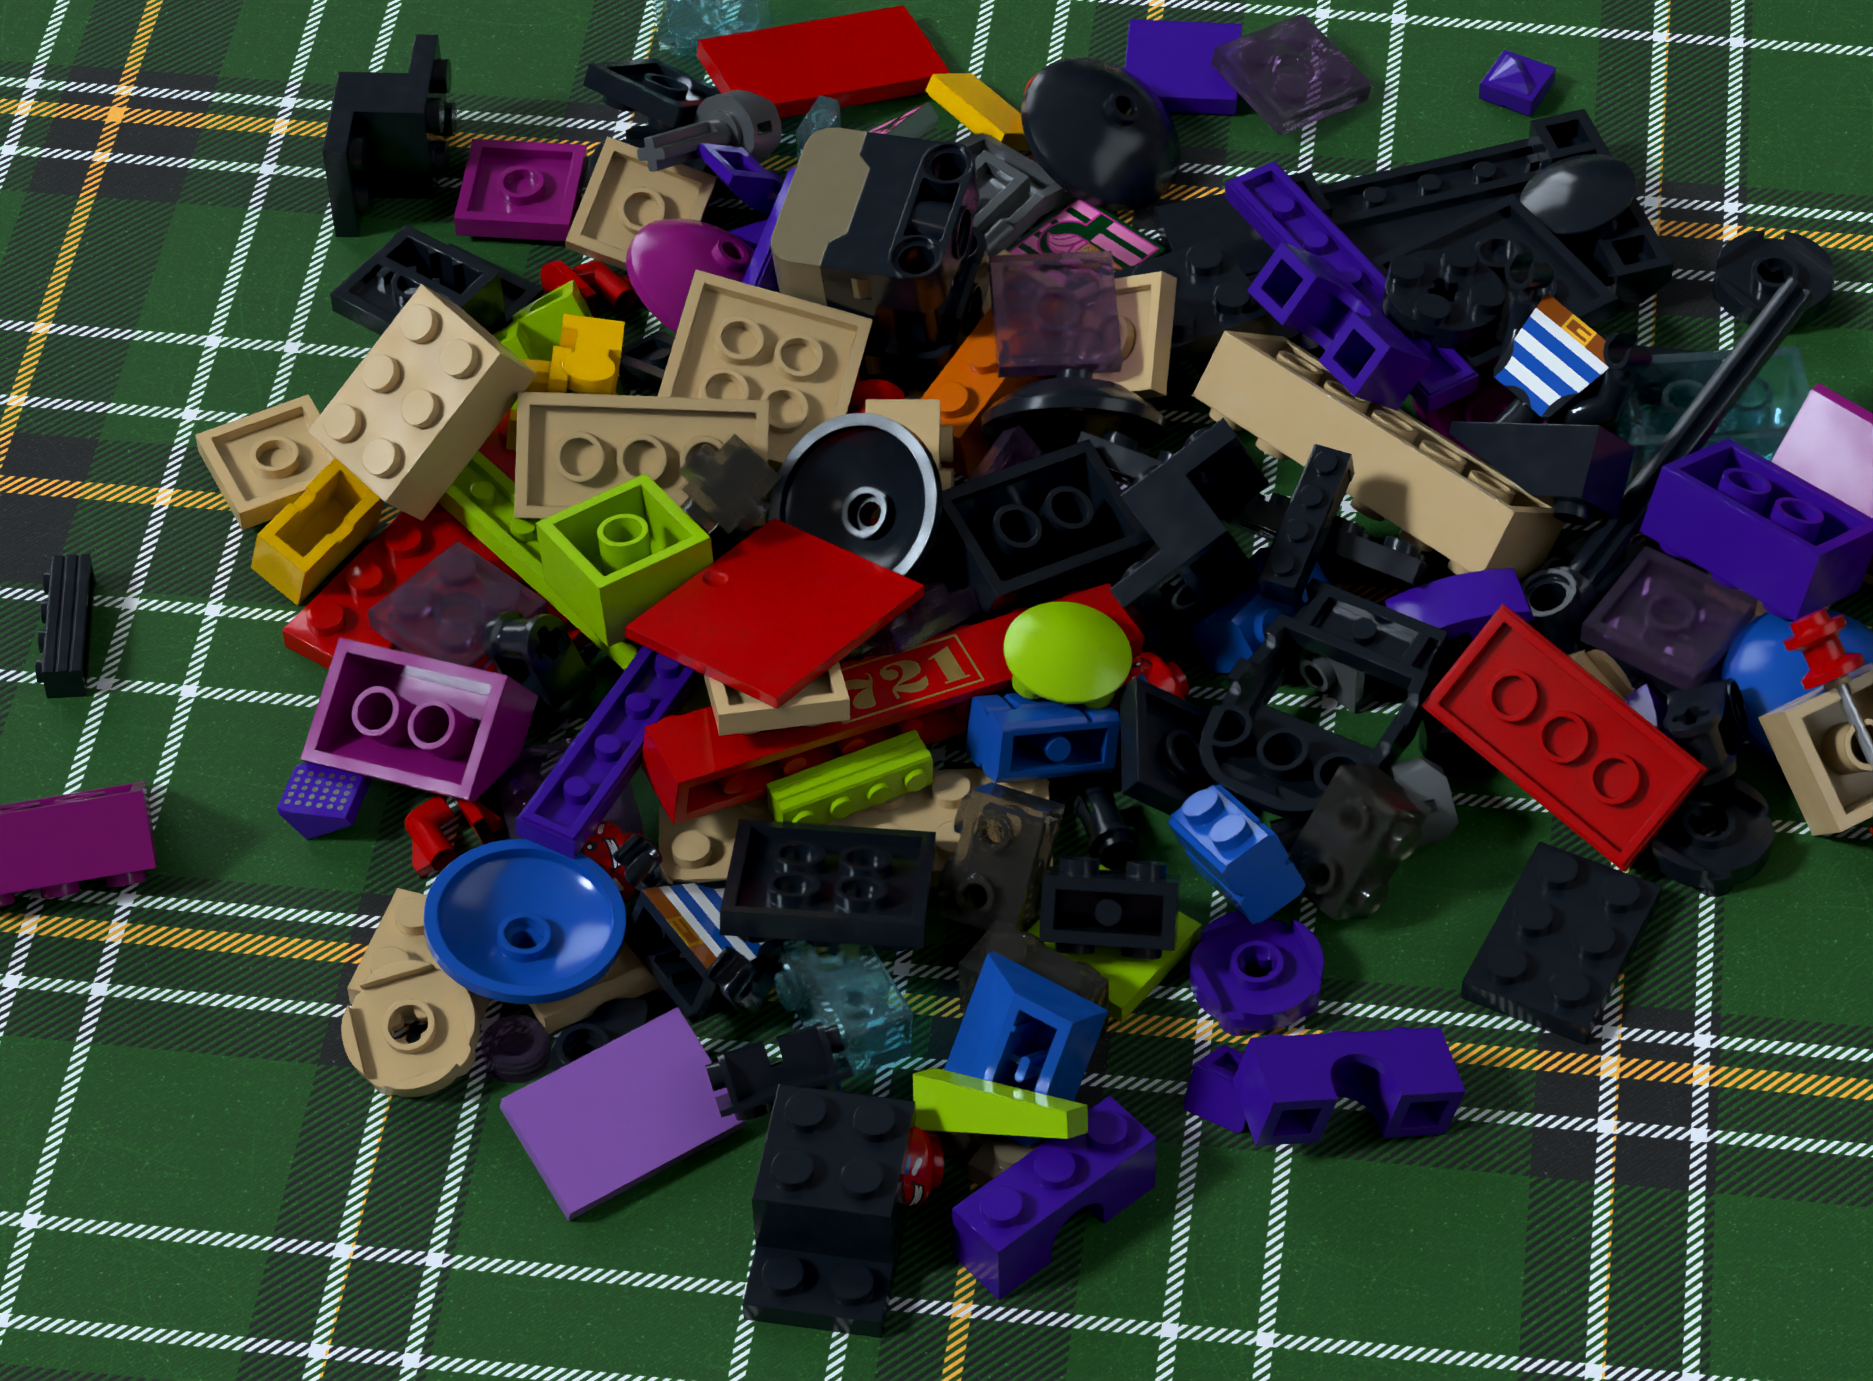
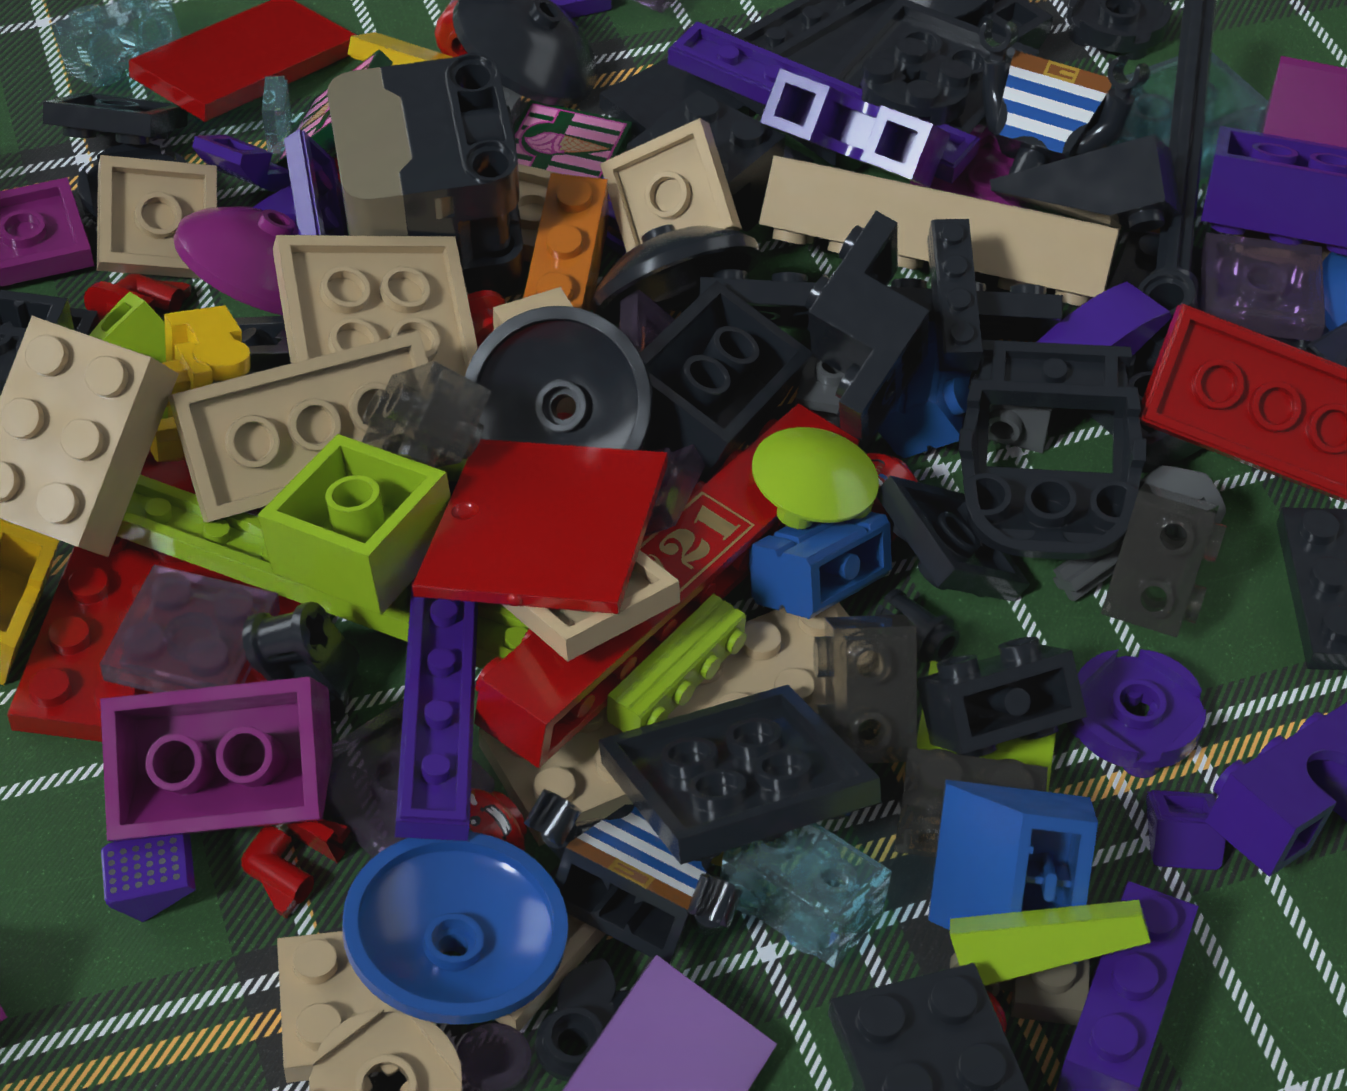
camera: 30 degrees left, 0 degrees up
(719, 120) = (197, 113): dark grey piece -> none
(754, 1081) = (784, 1008): black hinge -> none
(1054, 313) = (617, 184): clear purple plate -> none
(1236, 853) = (1069, 605): blue brick -> none

